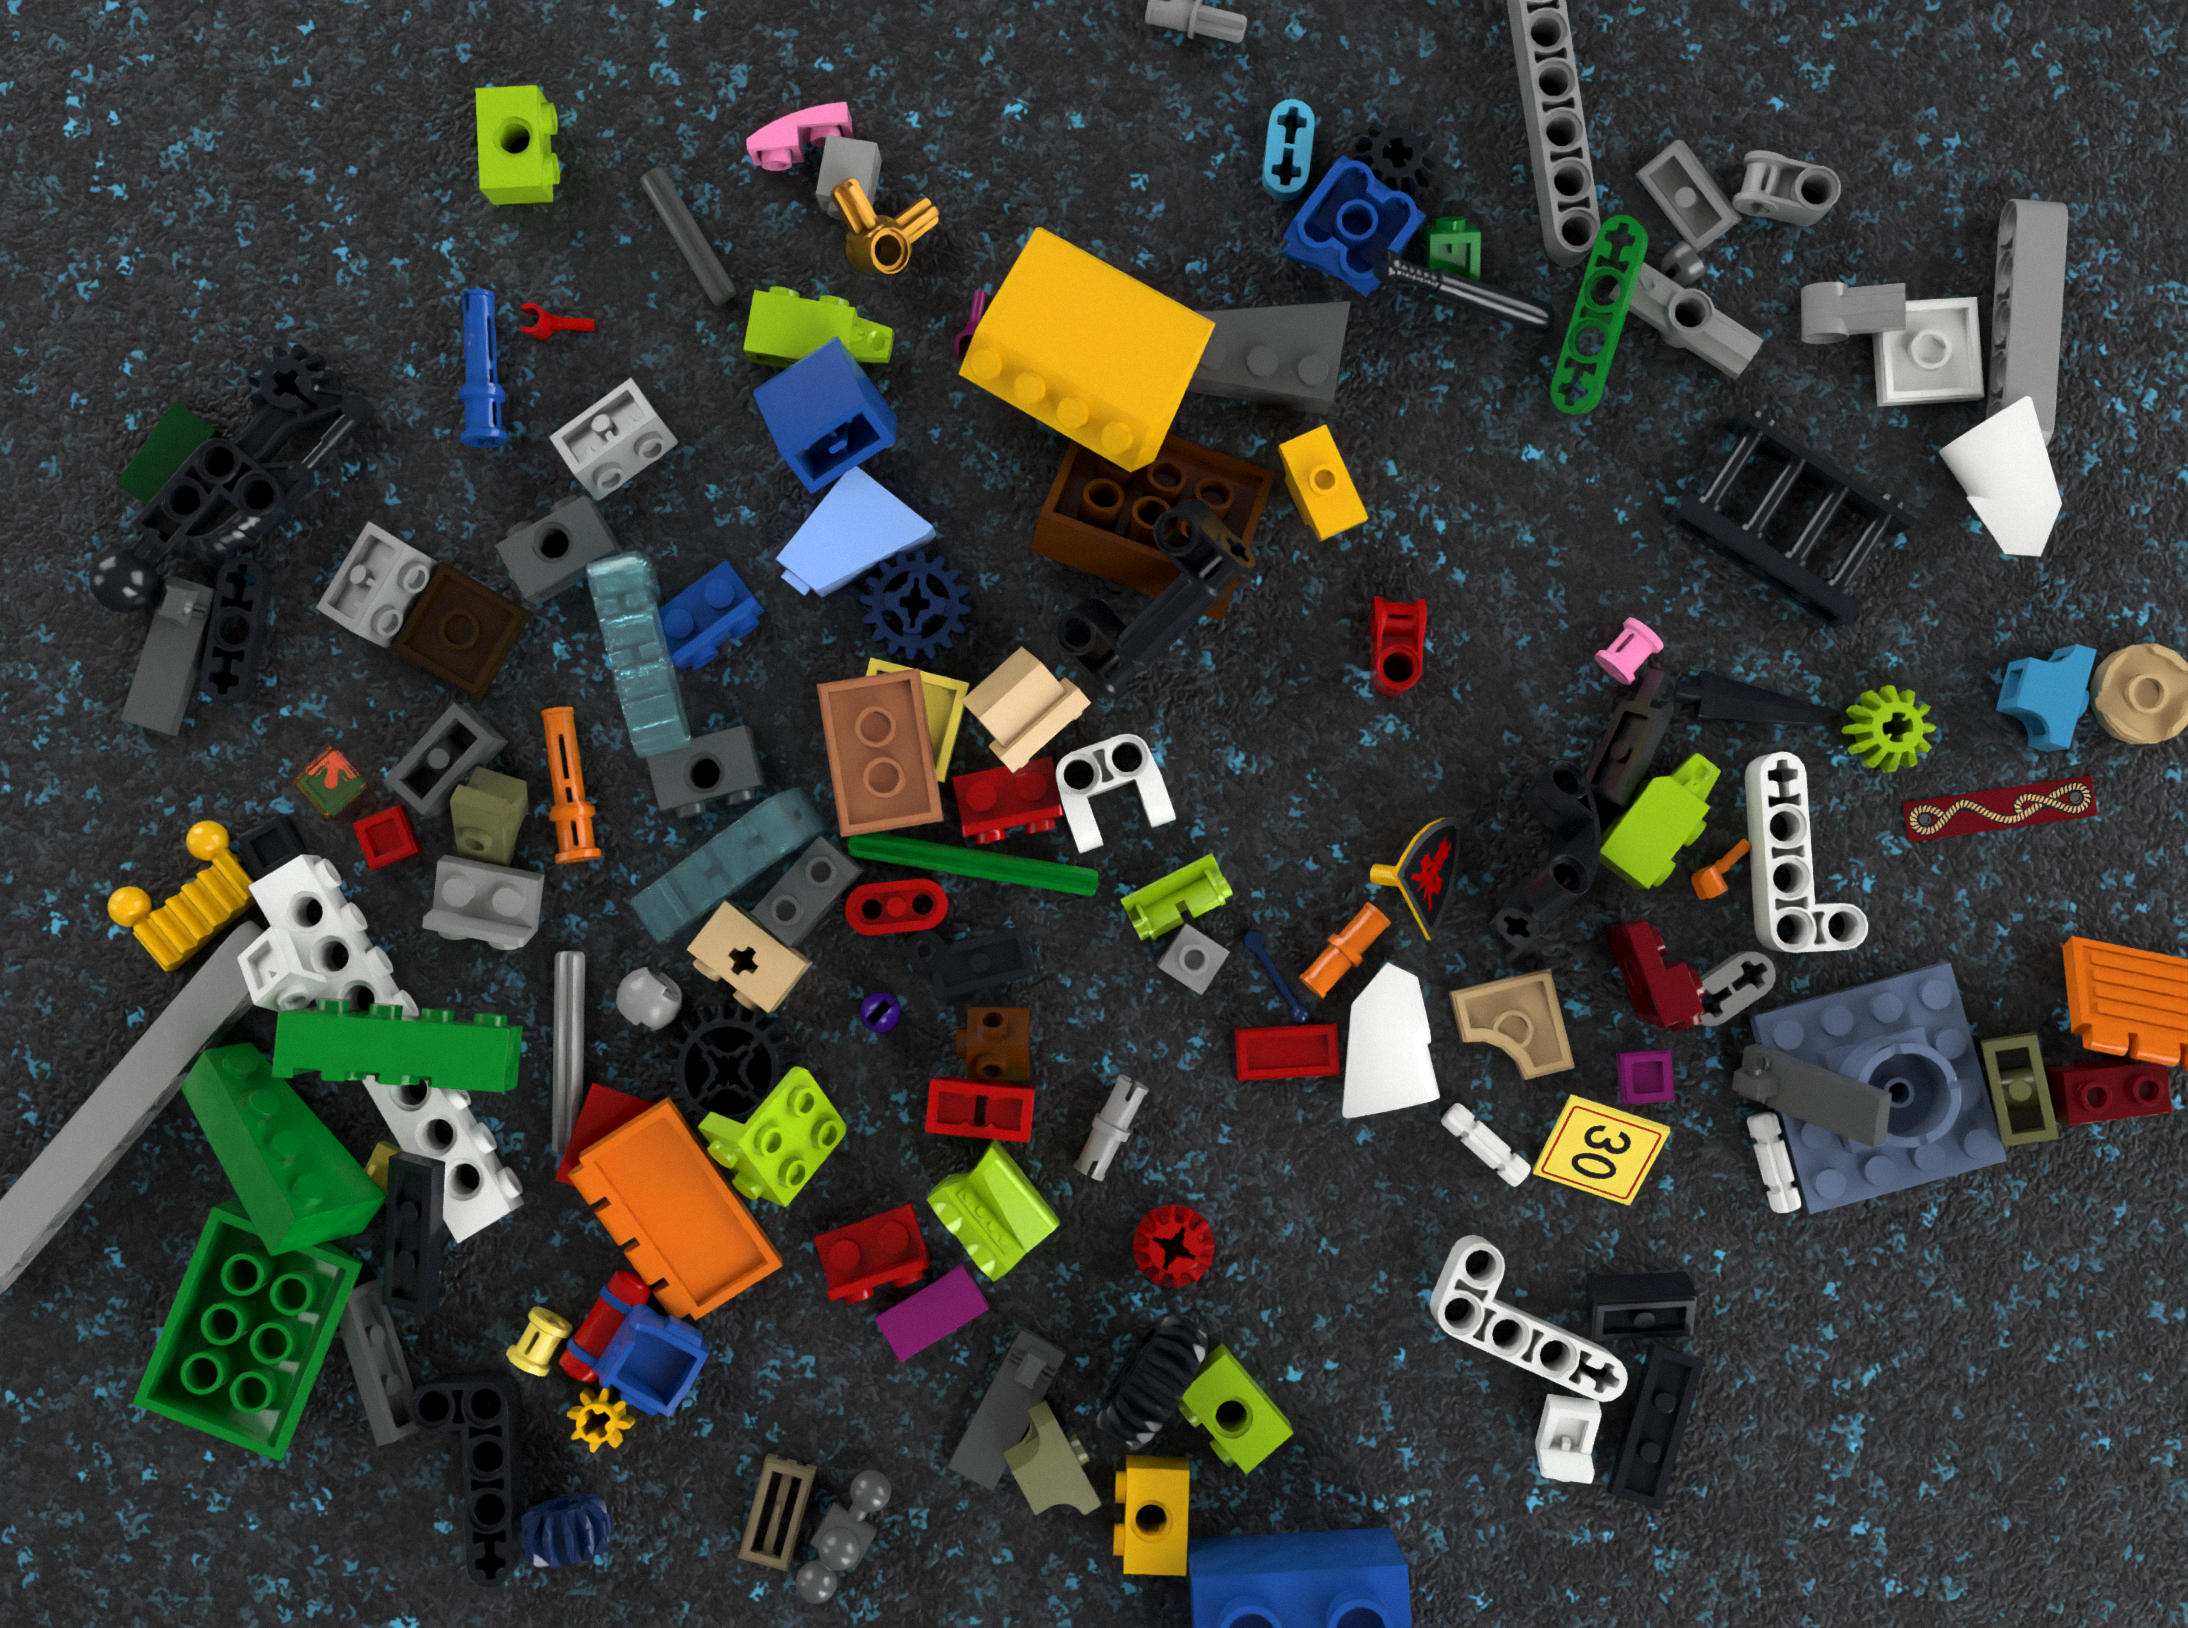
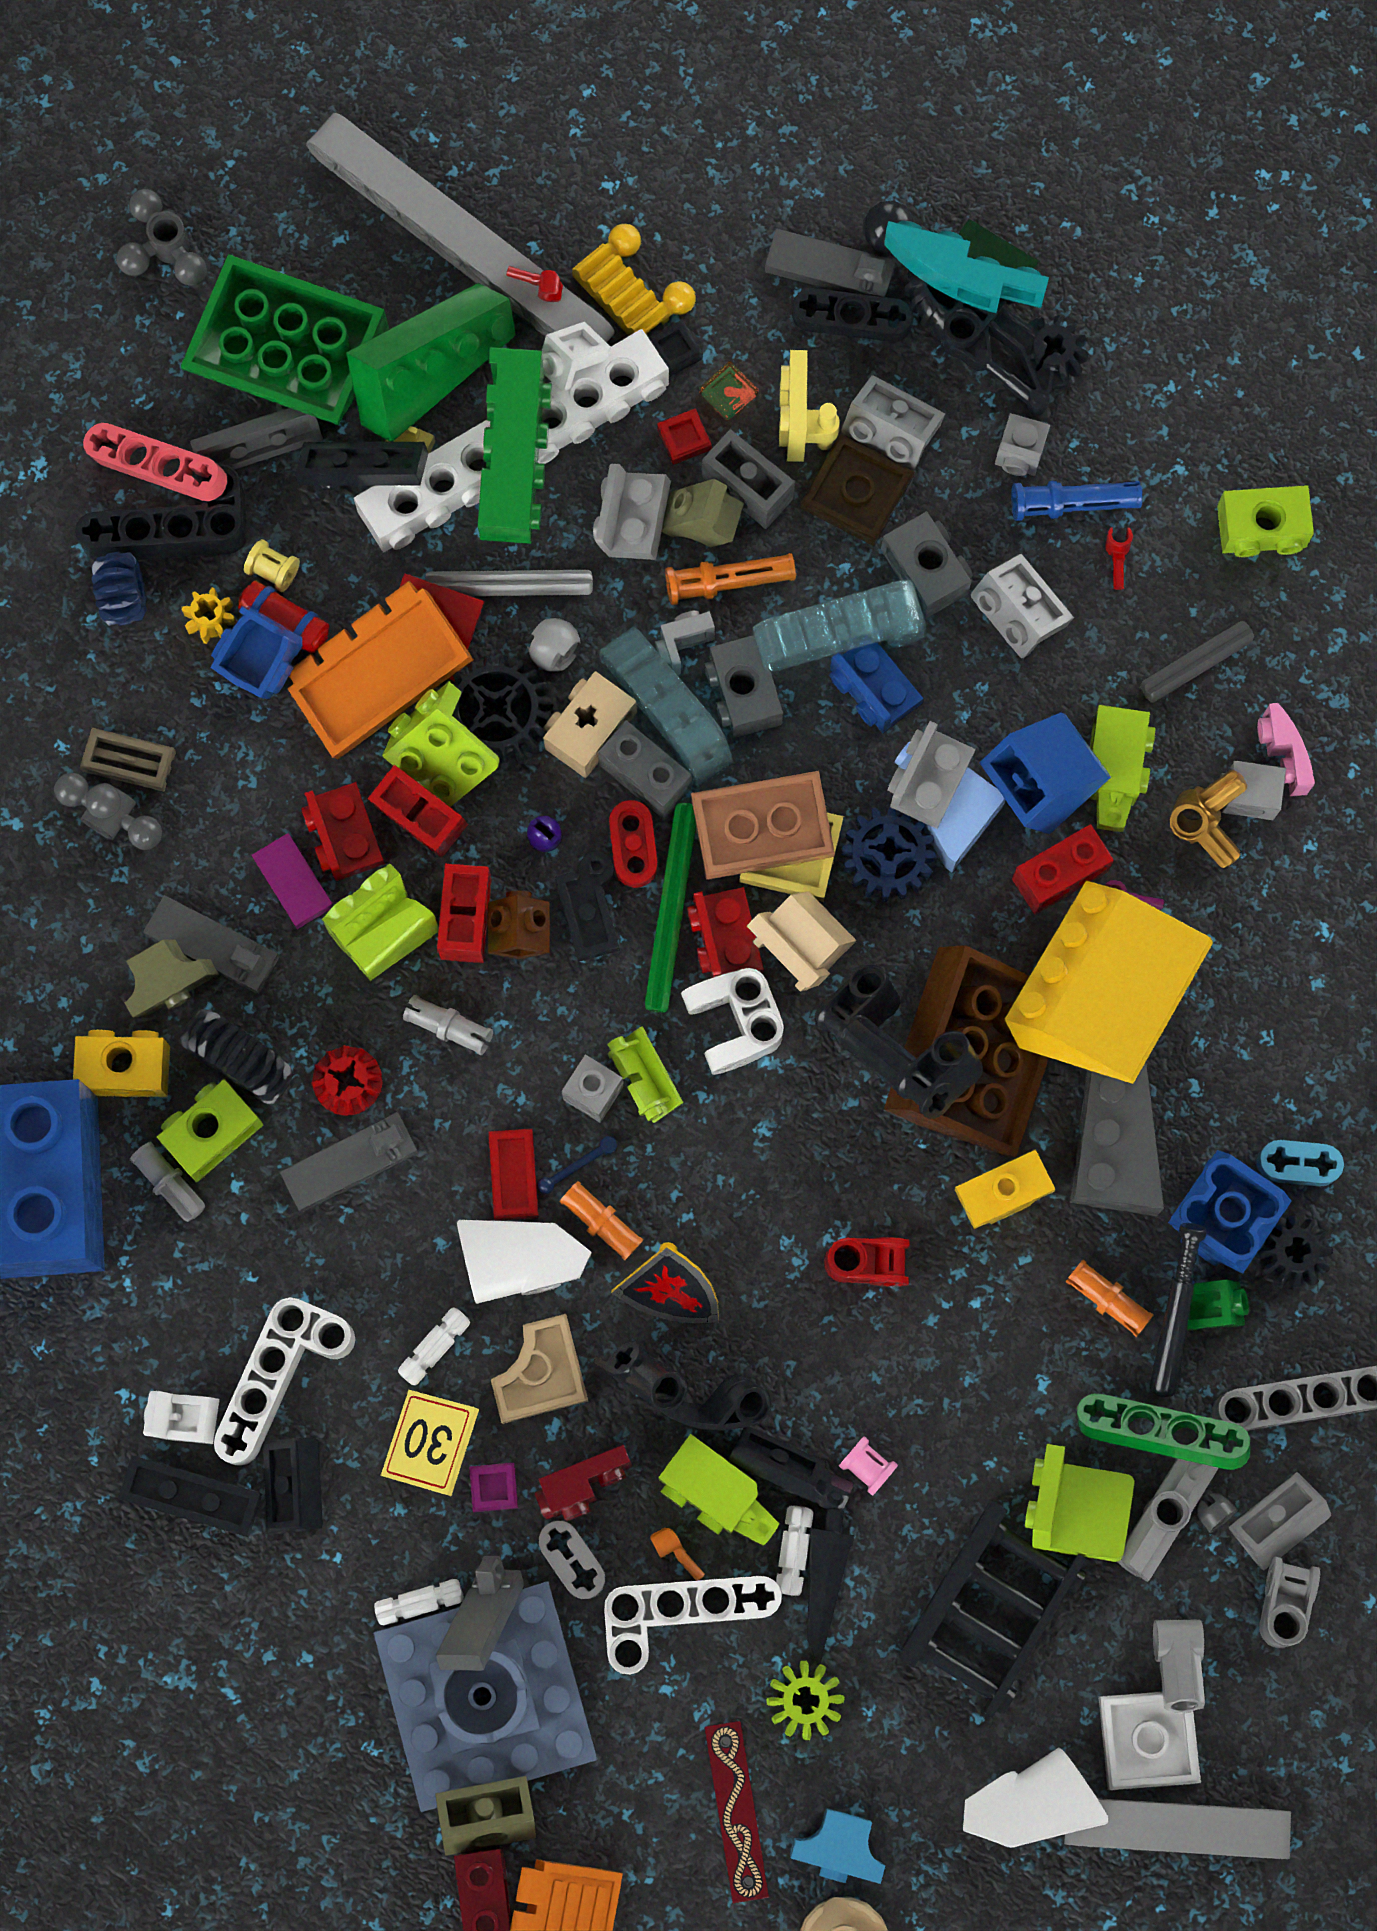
camera: 90 degrees right, 10 degrees down
(132, 1516) = (135, 258): none -> dark grey piece
(178, 510) = (944, 264): none -> teal slope
(183, 1000) = (548, 281): none -> red hand
(376, 698) = (796, 422): none -> light yellow plate
(403, 1489) = (153, 464): none -> coral beam
(411, 431) = (1022, 445): none -> light grey bracket
(635, 837) = (686, 631): none -> light grey bracket
(829, 549) = (931, 775): none -> light grey bracket
(855, 1164) = (418, 811): none -> red brick
(940, 402) = (1062, 869): none -> red brick
(1270, 1243) = (348, 1162): none -> dark grey hinge
(1292, 1456) = (167, 1182): none -> light grey axle
(1442, 371) = (1109, 1298): none -> orange pin
(1683, 413) = (1079, 1508): none -> lime bracket
(1720, 737) = (794, 1550): none -> white axle

